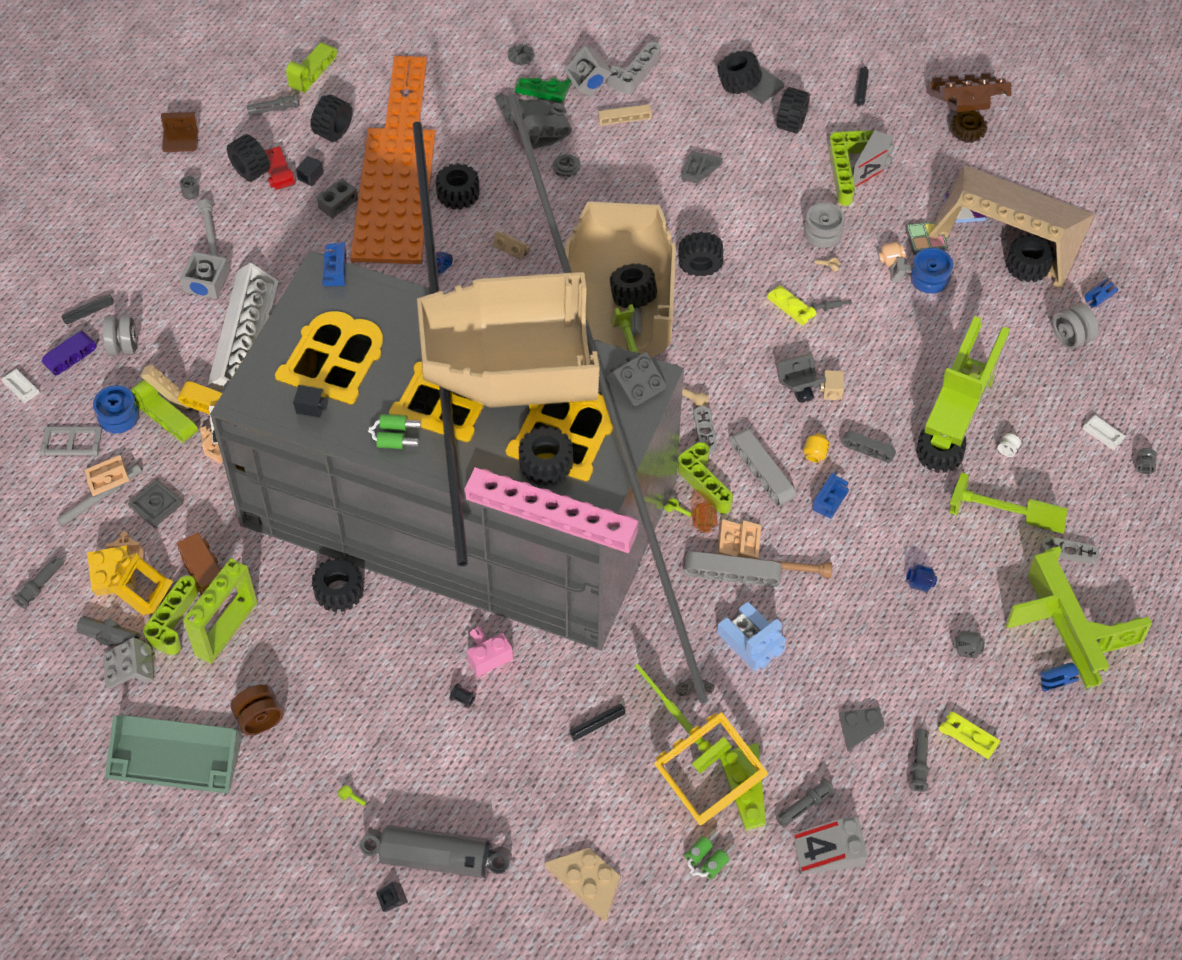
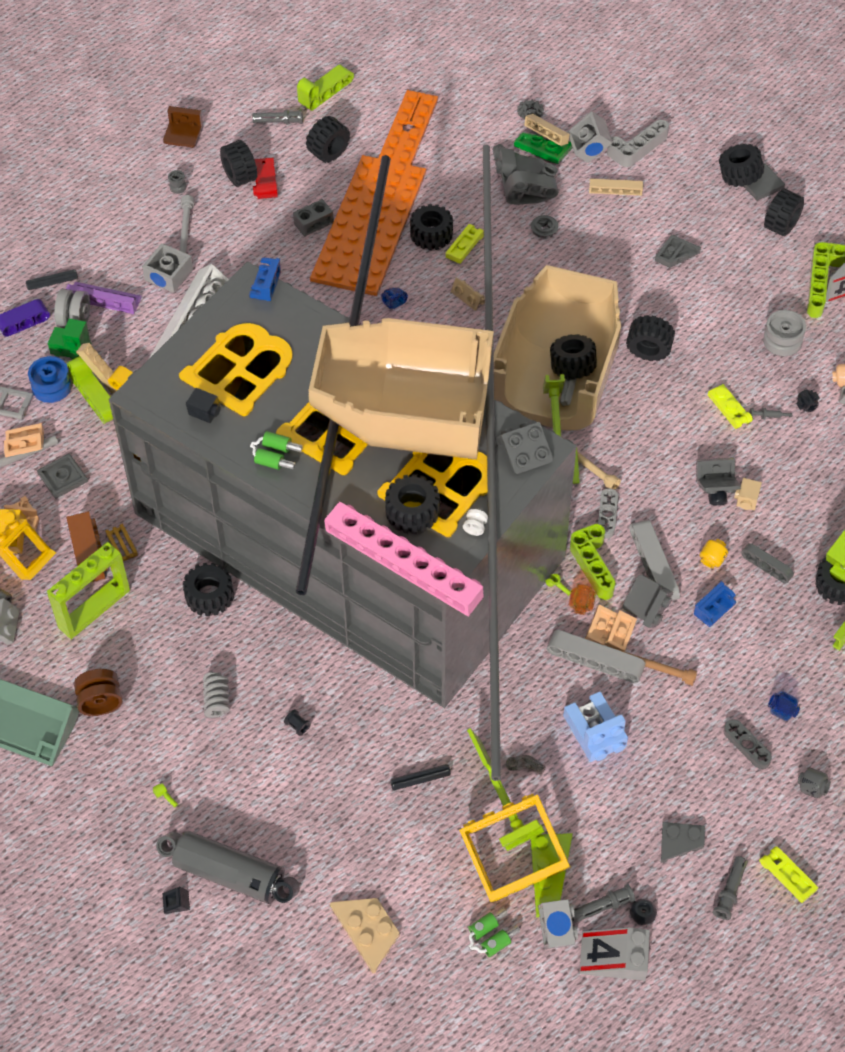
camera: 15 degrees right, 0 degrees up
(125, 367) = (69, 339): none -> green brick
(152, 316) = (108, 298): none -> medium lavender fence
(184, 592) = (35, 596): lime beam -> none
(220, 551) = (116, 531): none -> pearl gold tile
(309, 171) = (294, 186): black brick -> none
(374, 686) = (215, 695): none -> light grey piece
(488, 653) = (333, 686): bright pink brick -> none
(493, 196) = (464, 243): none -> neon yellow plate
(543, 71) = (546, 129): none -> tan piece
(611, 460) = (475, 522): none -> white wheel
(768, 505) = (648, 600): none -> dark grey bracket
(770, 832) = (557, 924): none -> light grey brick
(831, 263) = (783, 372): tan hand -> none
(845, 807) = (640, 917): none -> black plate
(863, 285) = (807, 400): none -> black gear
(912, 624) = (747, 752): none -> dark grey beam

